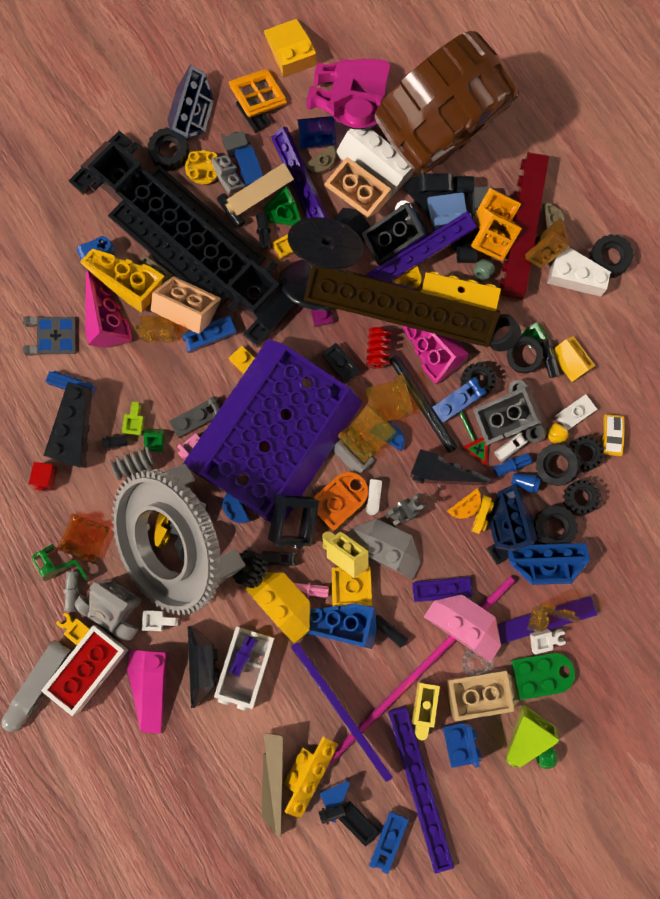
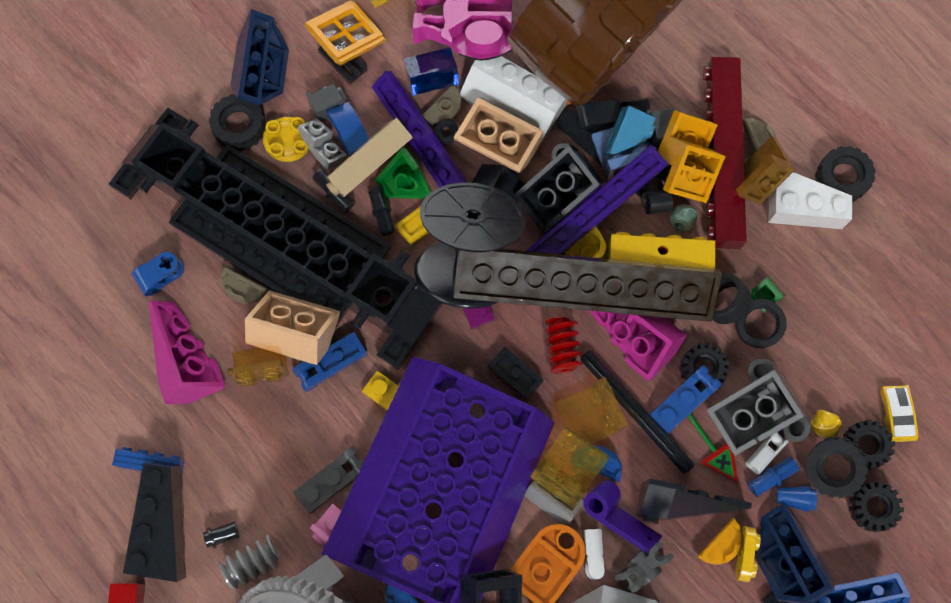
camera: 10 degrees left, 5 degrees down
(54, 335) = (115, 398): dark grey flag -> none
(128, 280) = (206, 305): yellow wedge -> none
(133, 423) = (244, 503): lime plate -> none
(154, 439) = (276, 521): green slope -> none
(316, 174) = (449, 124): none -> black plate
(386, 464) = (602, 506): none -> dark purple door
(455, 198) = (629, 130): none -> dark azure slope
(549, 359) = (794, 324): black axle -> none
(565, 516) = (864, 540): black tyre -> none
(573, 358) = (823, 318): yellow panel -> none
(575, 412) = (843, 390): white plate -> none

